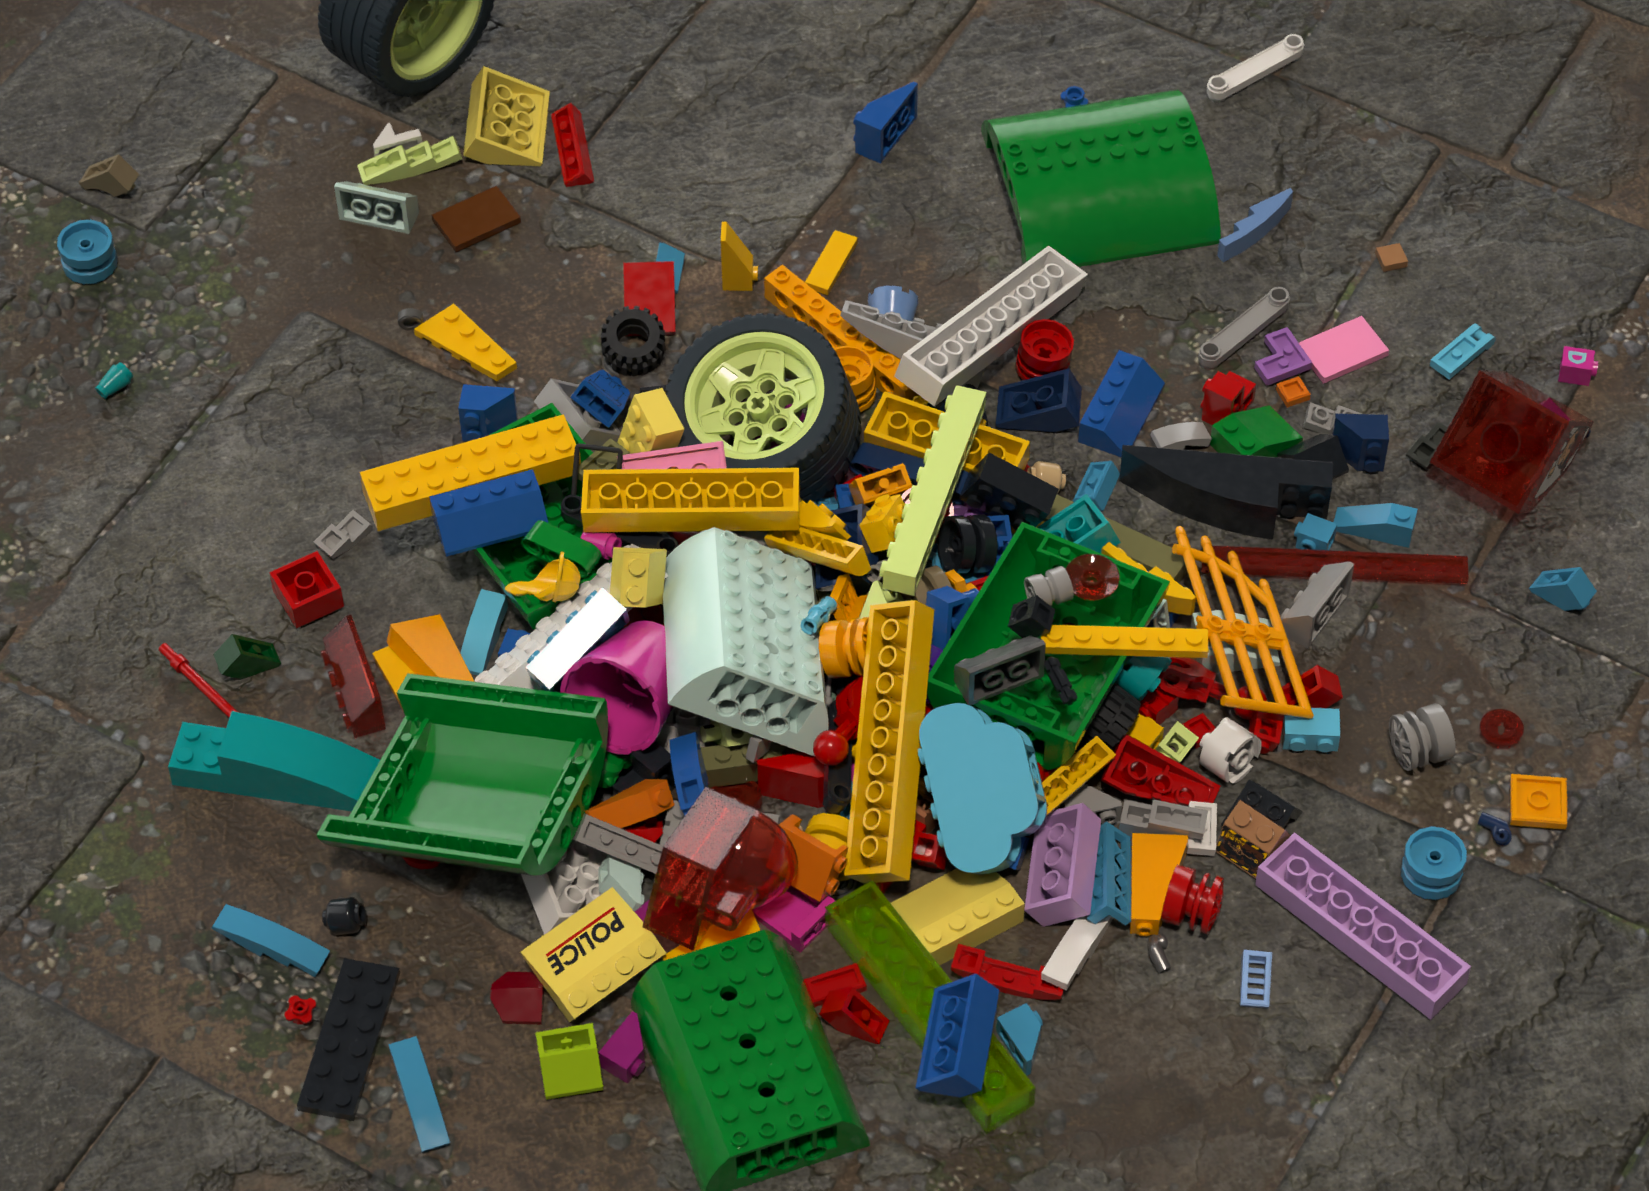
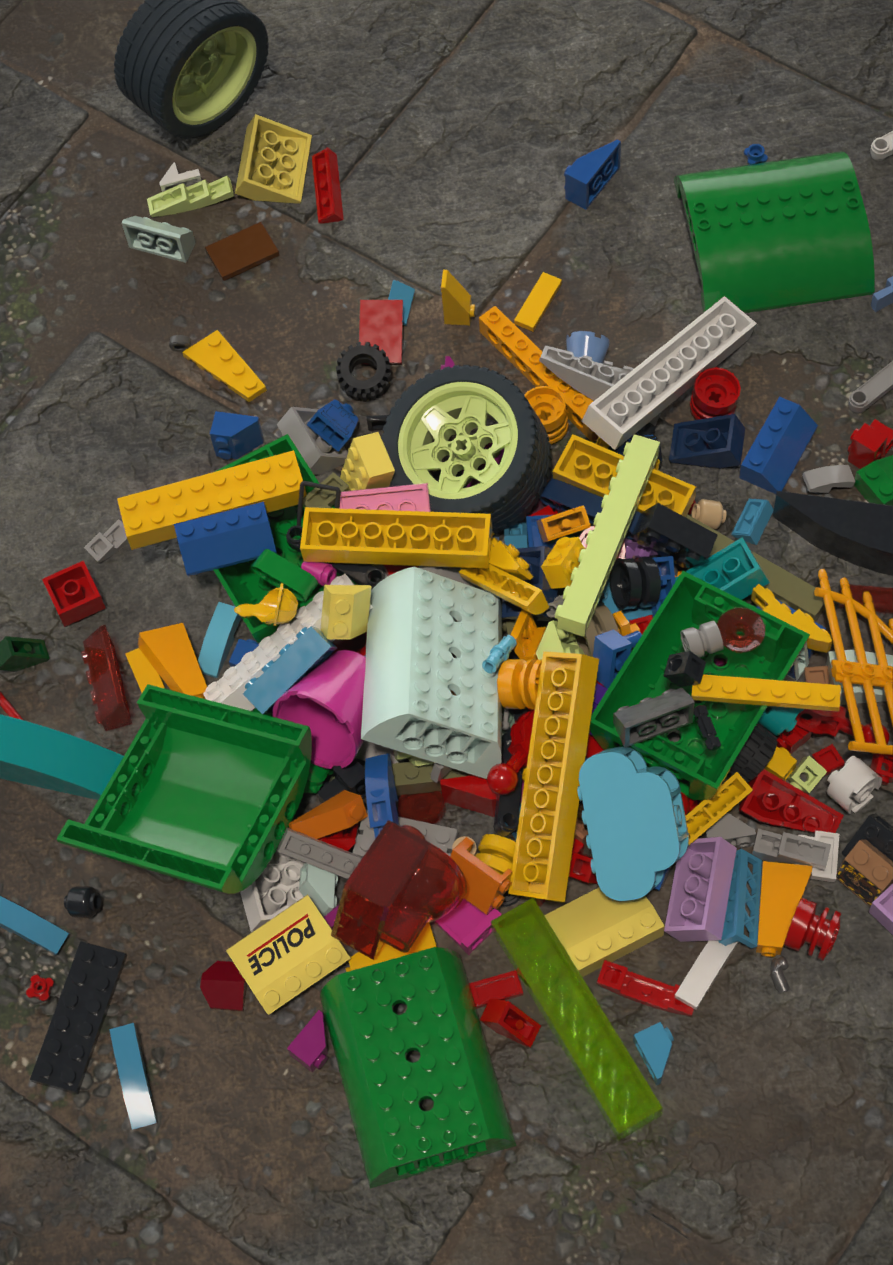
camera: 10 degrees right, 10 degrees up
(569, 1061) = (262, 1053): lime slope -> none
(958, 1037) = (597, 1059): blue slope -> none
(1255, 957) = (874, 986): light blue slope -> none

